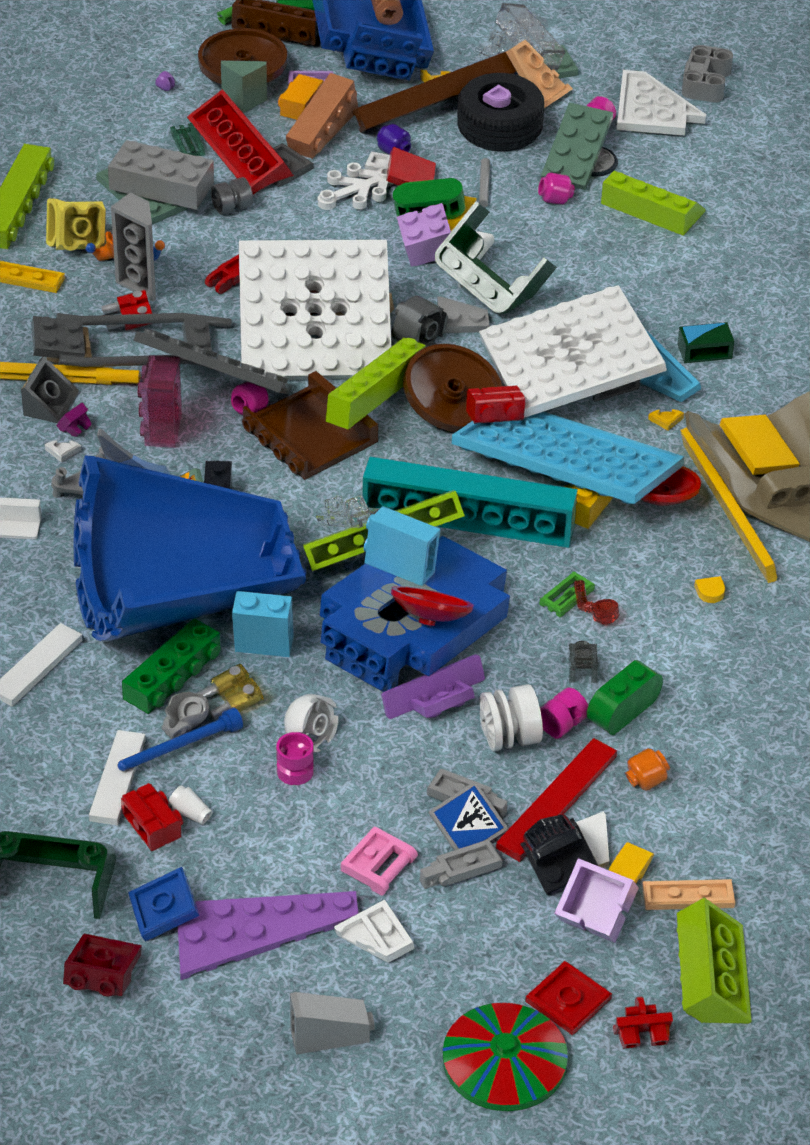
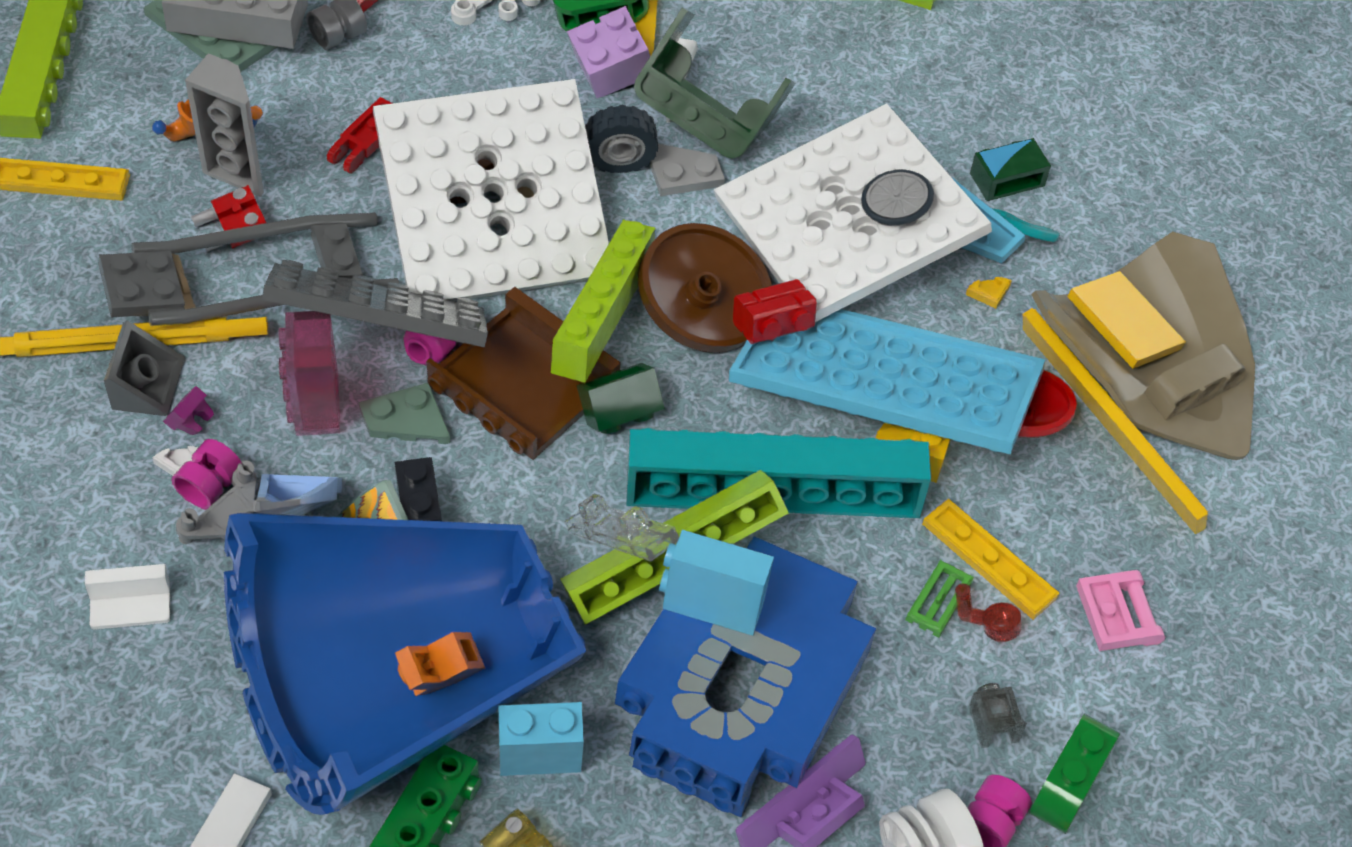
camera: 15 degrees left, 10 degrees up
(72, 455) = (206, 475): none -> dark pink wheel
(75, 224) = (130, 94): light yellow piece -> none
(206, 575) = (439, 663): none -> orange brick
(221, 442) = (405, 415): none -> sand green wing
(377, 443) = (621, 398): none -> dark green brick
(416, 280) = (621, 139): none -> black wheel
(419, 320) = (635, 190): dark grey brick -> none
(430, 605) = (785, 678): red dish -> none
(602, 340) = (897, 197): none -> light grey wheel
(611, 576) = (990, 559): none -> yellow tile
(685, 619) = (1109, 612): none -> bright pink plate
(708, 381) = (1029, 229): none -> teal piece
(710, 589) = (1126, 556): yellow tile -> none

